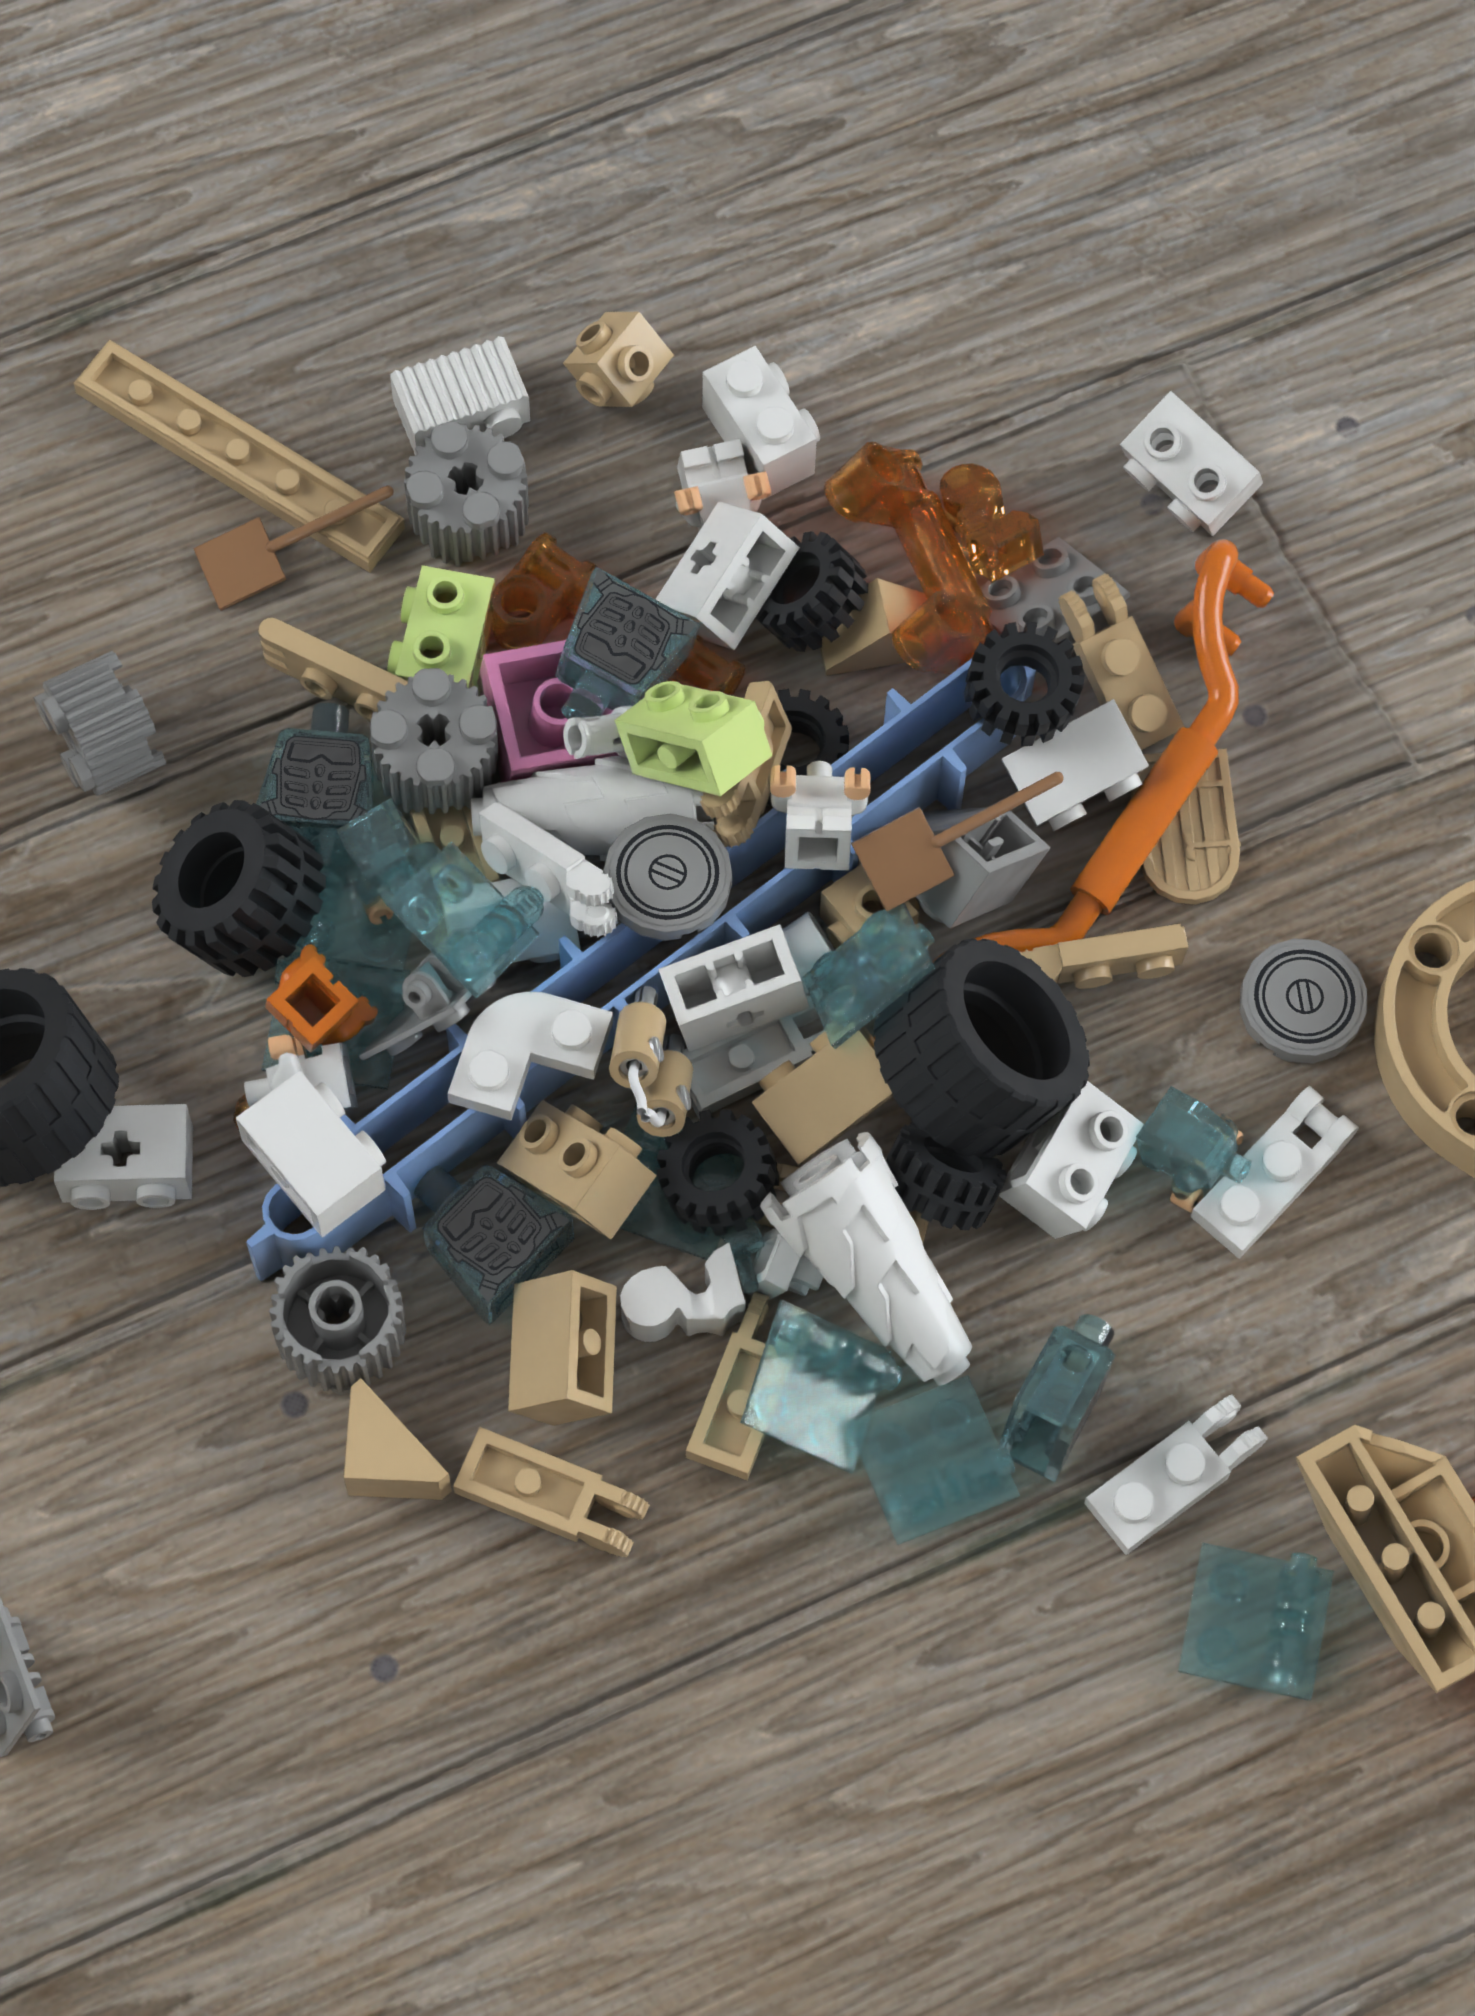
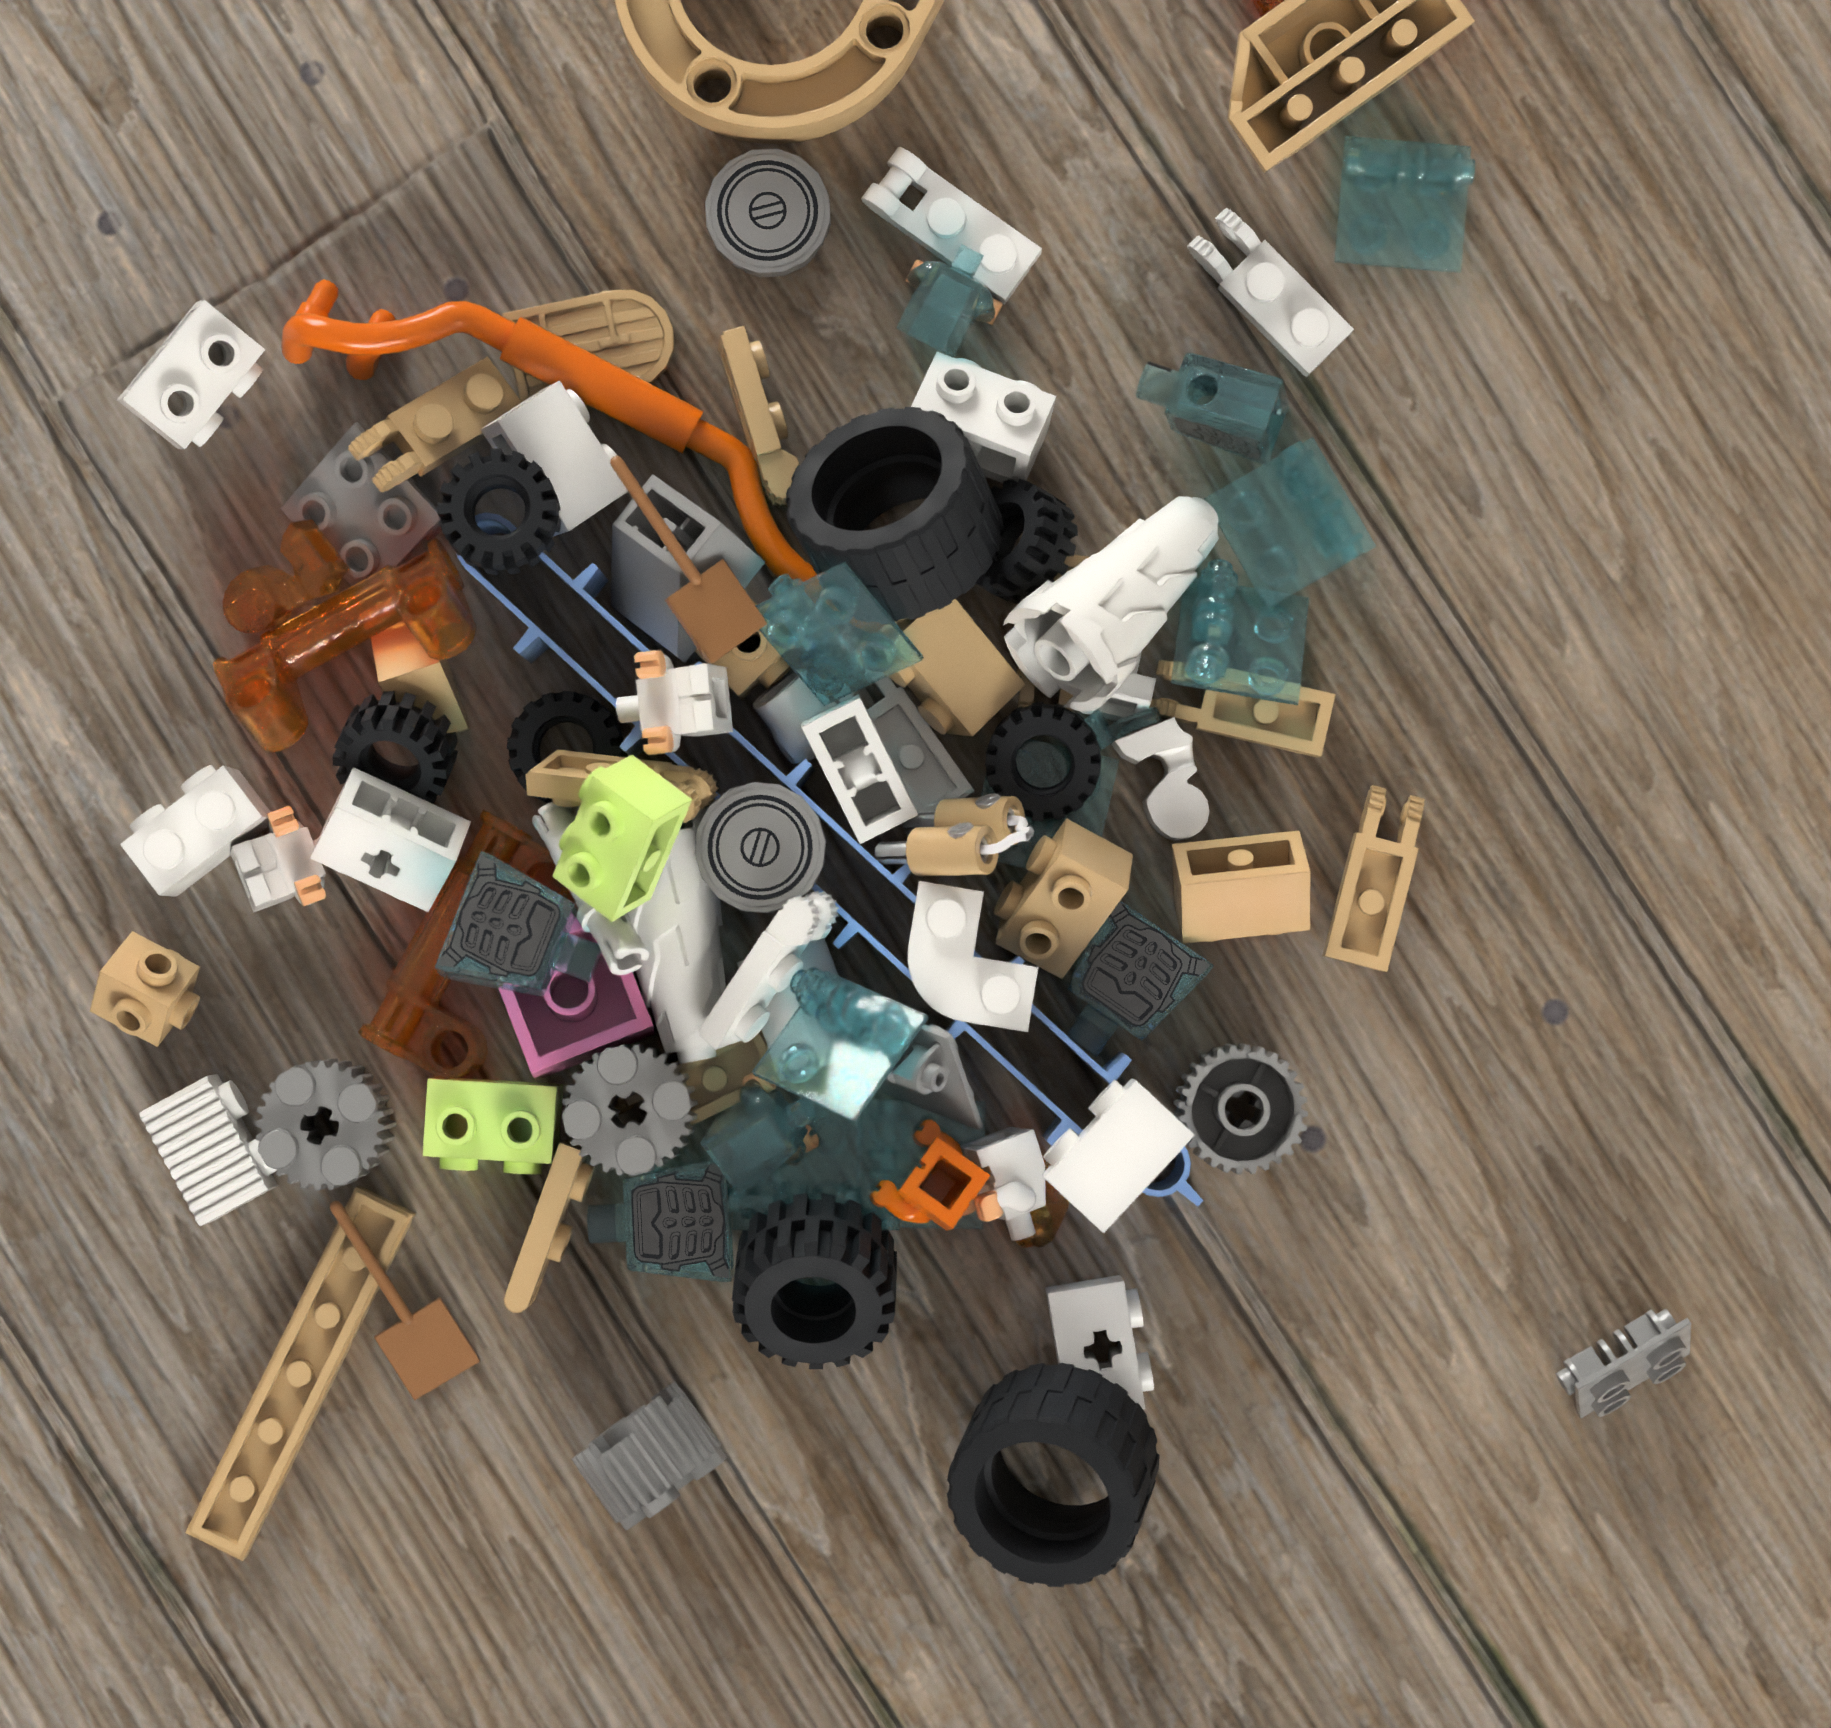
camera: 95 degrees left, 20 degrees up
(385, 1455) = (1362, 1042): tan slope -> none

